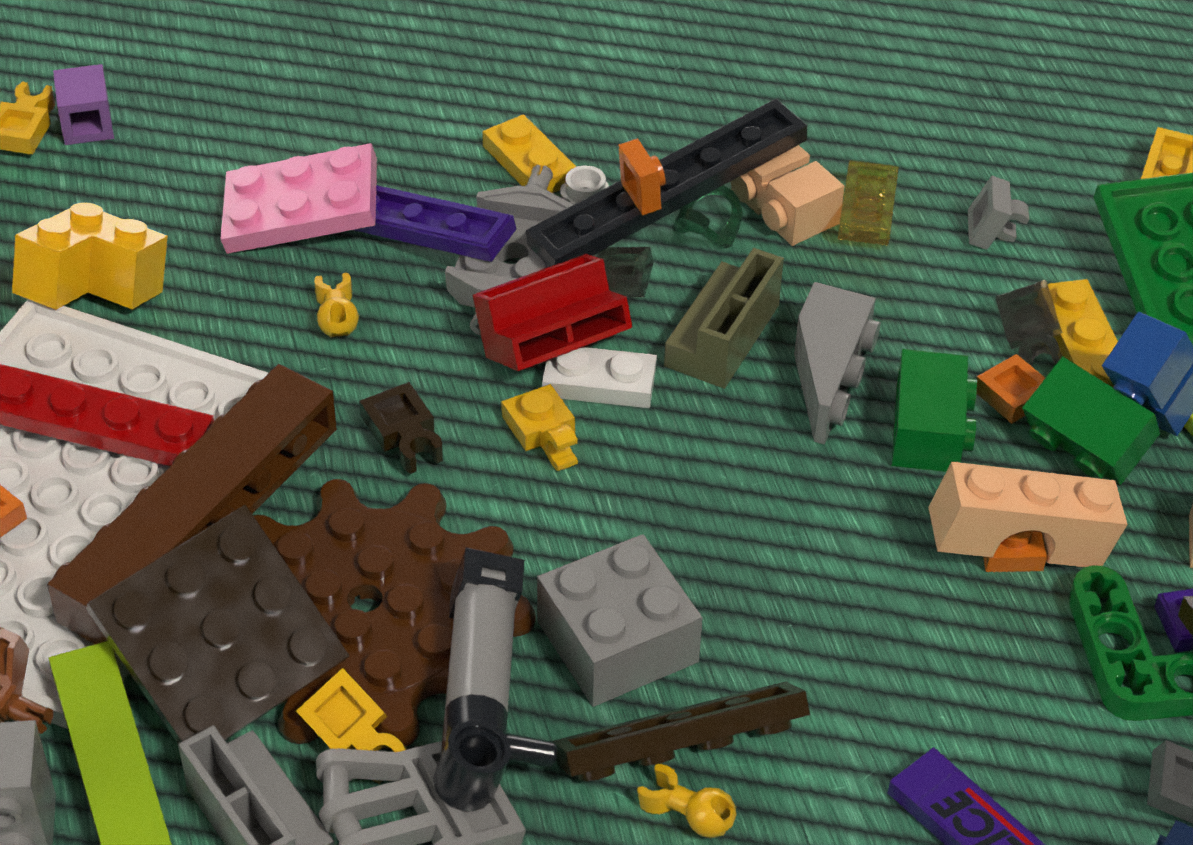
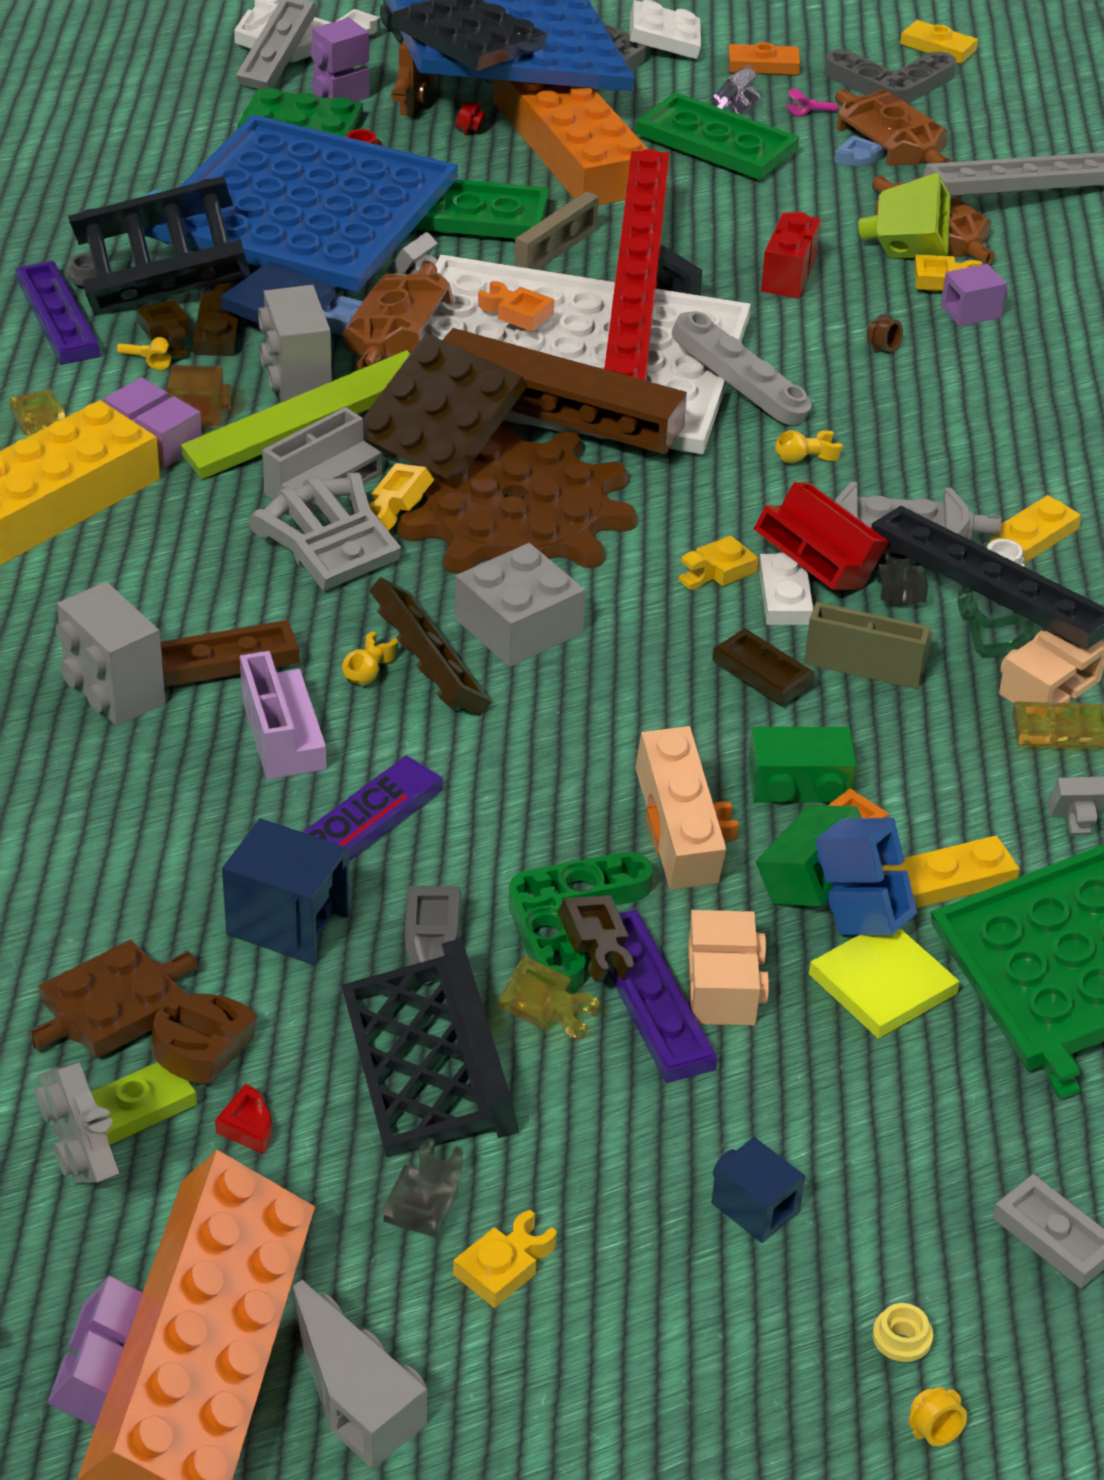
camera: 80 degrees right, 5 degrees down
(89, 254) = (790, 310): yellow brick -> none
(128, 195) = (885, 334): none -> reddish brown plate
(177, 326) = (741, 368): none -> light grey plate
(299, 198) = (913, 408): bright pink plate -> none
(402, 420) = (689, 487): dark brown plate -> none
(440, 224) = (913, 467): dark purple tile -> none
(478, 685) = (372, 531): piece -> none
(641, 176) = (963, 536): orange plate -> none
(749, 415) = (763, 666): none -> dark brown plate
(829, 350) = (862, 697): light grey slope -> none
(1031, 321) = (940, 828): clear smoke plate -> none

